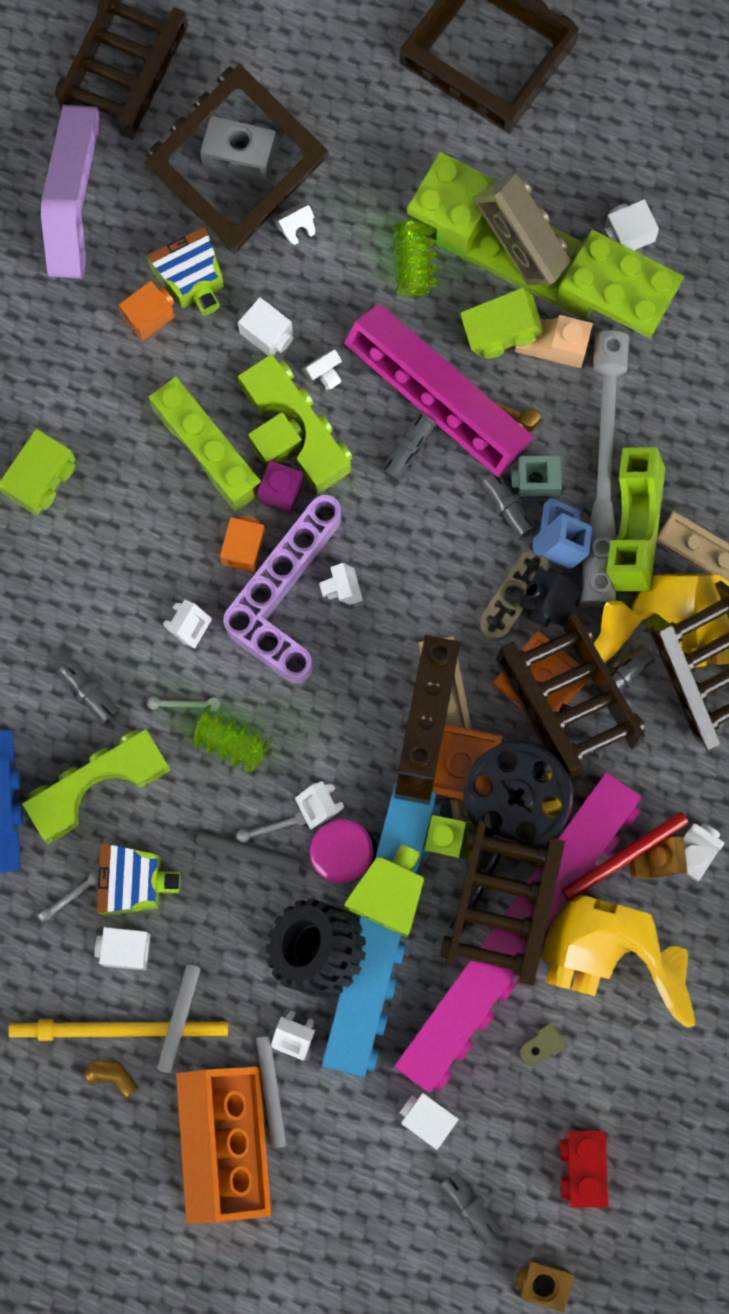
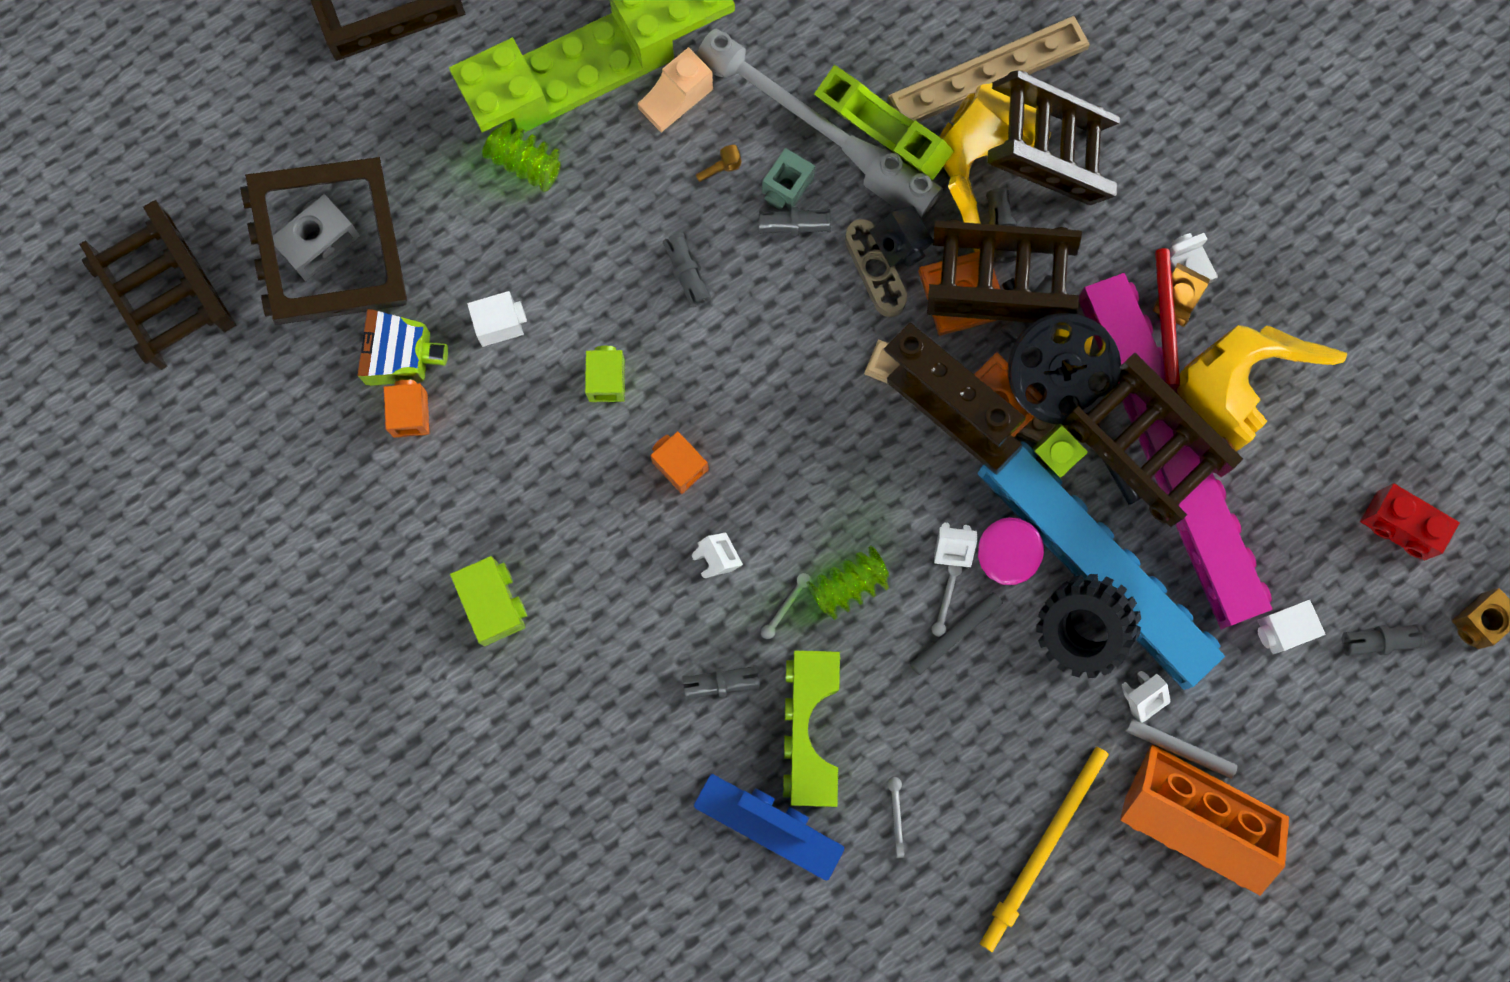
camera: 60 degrees left, 0 degrees up
(66, 191) = (248, 404): lavender beam -> none
(111, 1072) = (1080, 879): pearl gold arm -> none
(123, 948) = (977, 798): white brick -> none
(131, 881) = (921, 751): torso -> none
(178, 1018) = (1071, 787): light grey bar -> none
(207, 444) = (540, 436): lime arch -> none
(272, 390) = (555, 347): lime arch -> none
(279, 586) = (737, 457): lavender beam -> none
(280, 487) = (650, 397): magenta brick -> none
(292, 219) = (412, 233): white tile -> none
(323, 368) = (567, 294): white tile -> none
(342, 585) = (773, 401): white tile -> none
(389, 892) = (1082, 529): lime torso -> none
(438, 389) = (655, 210): dark pink brick -> none
(502, 324) = (635, 120): lime brick -> none
(523, 229) = (570, 45): dark tan slope -> none
(548, 1043) = (1277, 487): olive piece -> none
(562, 535) = (856, 192): medium blue brick -> none

